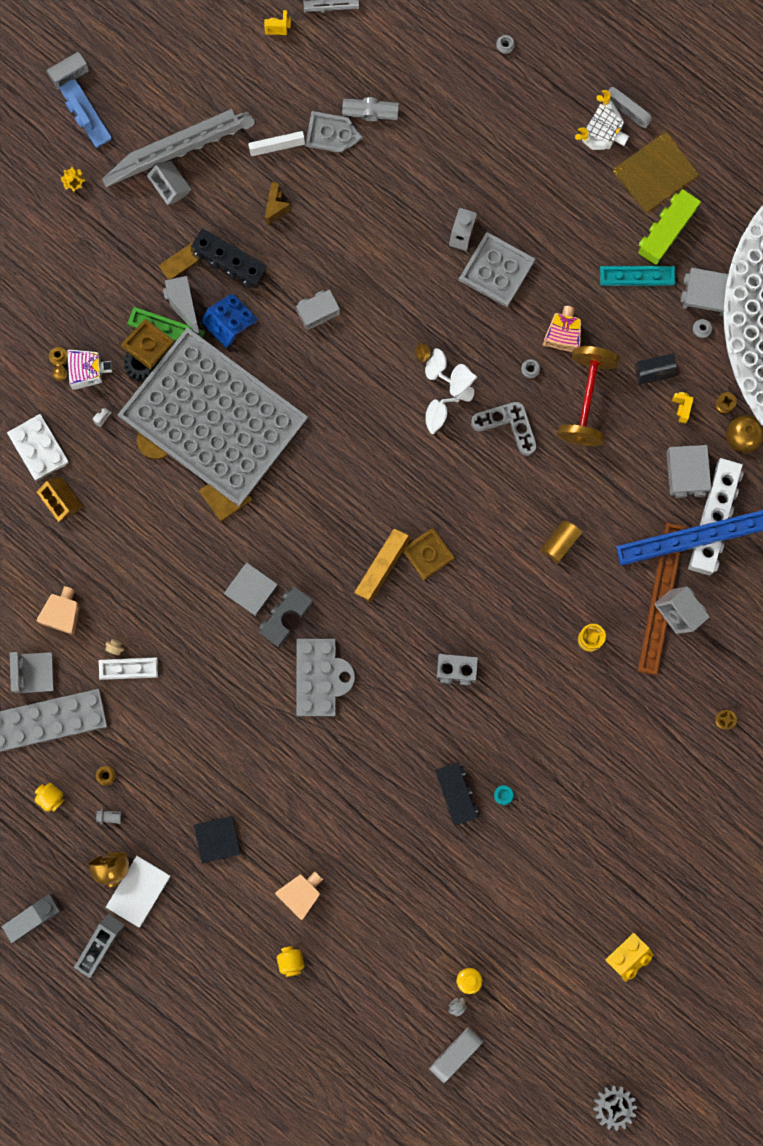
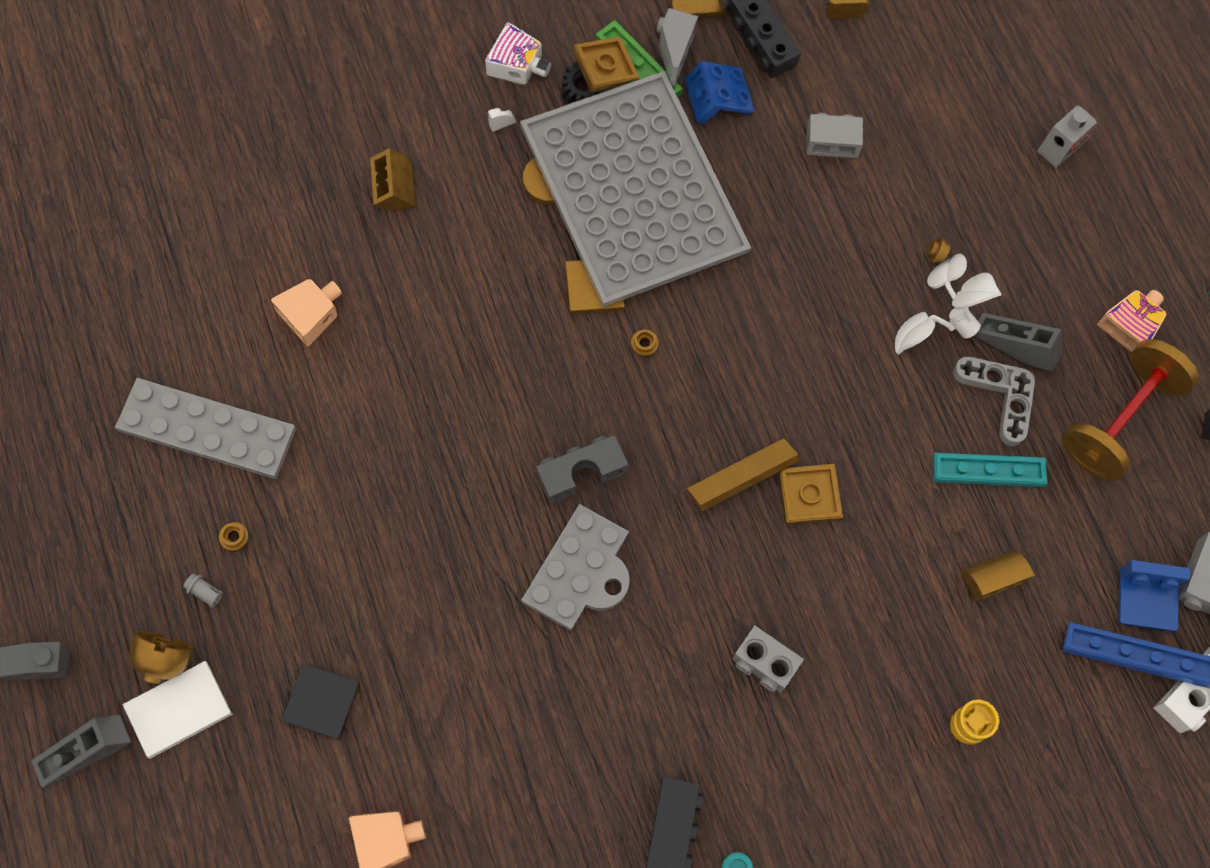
camera: 30 degrees right, 10 degrees down
(31, 672) = (224, 358): light grey bracket -> none
(38, 447) = (404, 113): white plate -> none
(49, 797) = (145, 521): yellow head -> none
(59, 372) = (489, 31): pearl gold plate -> none
(114, 647) = (346, 386): tan plate -> none
(128, 668) = (347, 422): white tile -> none
(250, 589) = (558, 412): light grey tile -> none
(277, 509) = (648, 336): none -> pearl gold plate
(496, 269) = (1085, 205): light grey plate -> none
(503, 384) = (1024, 341): none -> dark grey slope
(525, 478) = (989, 469): none -> teal tile
(530, 363) = (1074, 339): light grey plate -> none
(654, 504) = (1150, 595): none -> blue bracket
(656, 623) = (1085, 740): dark orange tile -> none
(682, 610) = (1123, 755): light grey brick -> none

